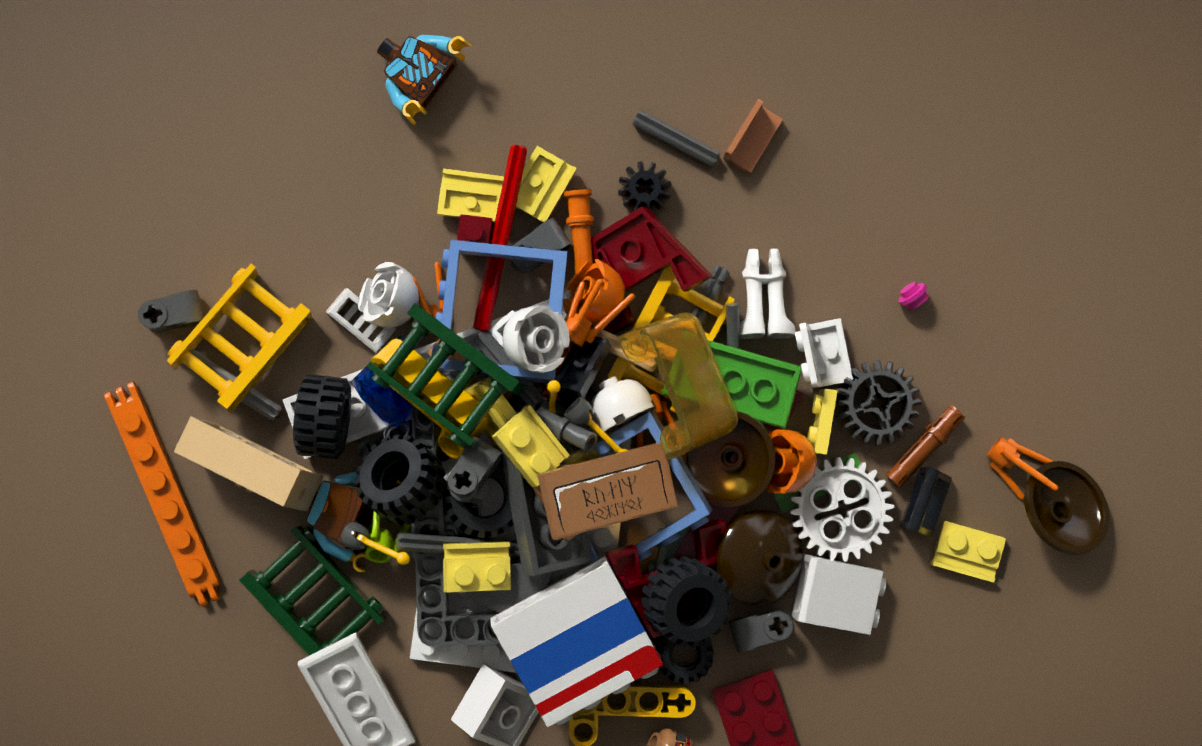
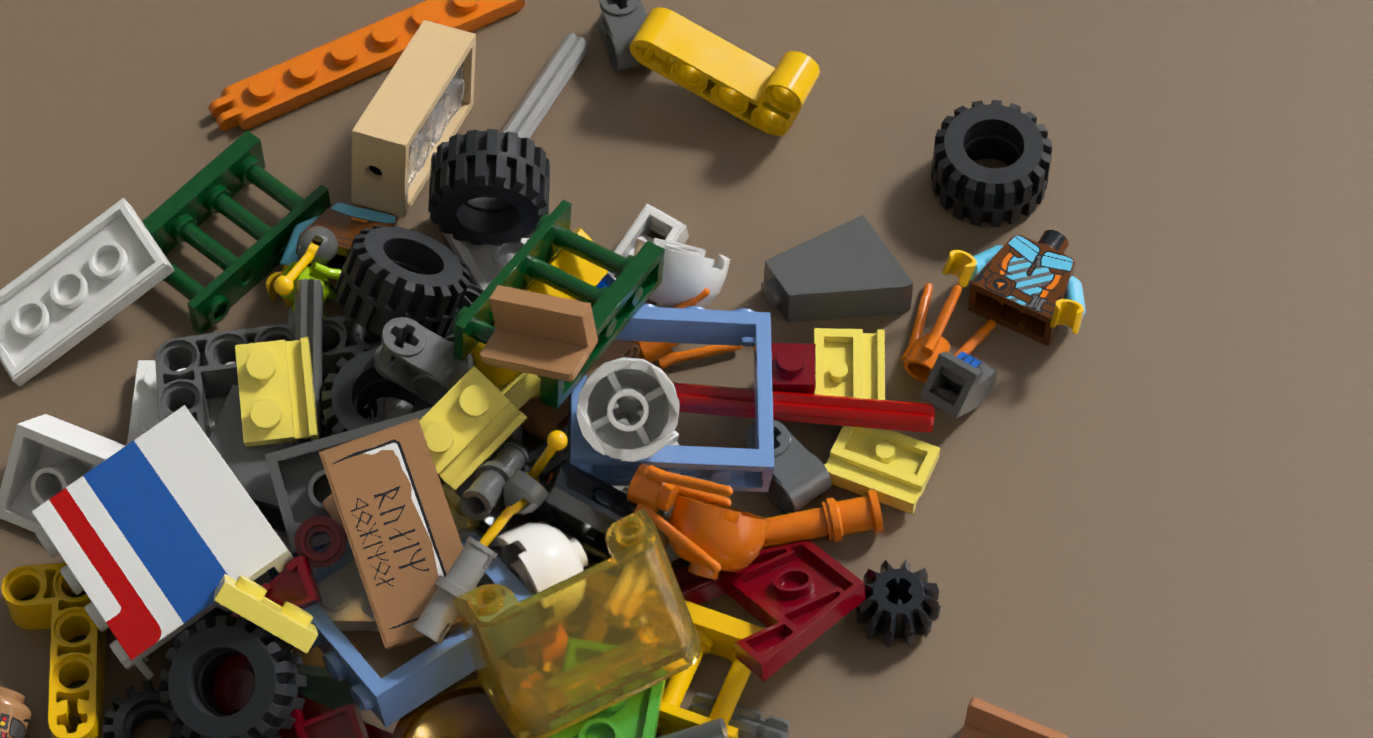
camera: 85 degrees right, 30 degrees down
(225, 248) = (724, 73): none -> yellow beam
(250, 367) = (578, 139): yellow fence -> none
(307, 55) = (996, 134): none -> black tyre
(395, 193) = (837, 276): none -> dark grey slope
(463, 142) = (924, 351): none -> orange plant
(491, 391) = (539, 334): none -> medium nougat panel
(493, 123) = (958, 383): none -> dark grey leg
(600, 544) = (316, 525): none -> dark red plate
(653, 579) = (249, 601): none -> light yellow plate
(655, 459) = (460, 579): none -> light grey pin
(676, 139) = (986, 645): dark grey axle -> none

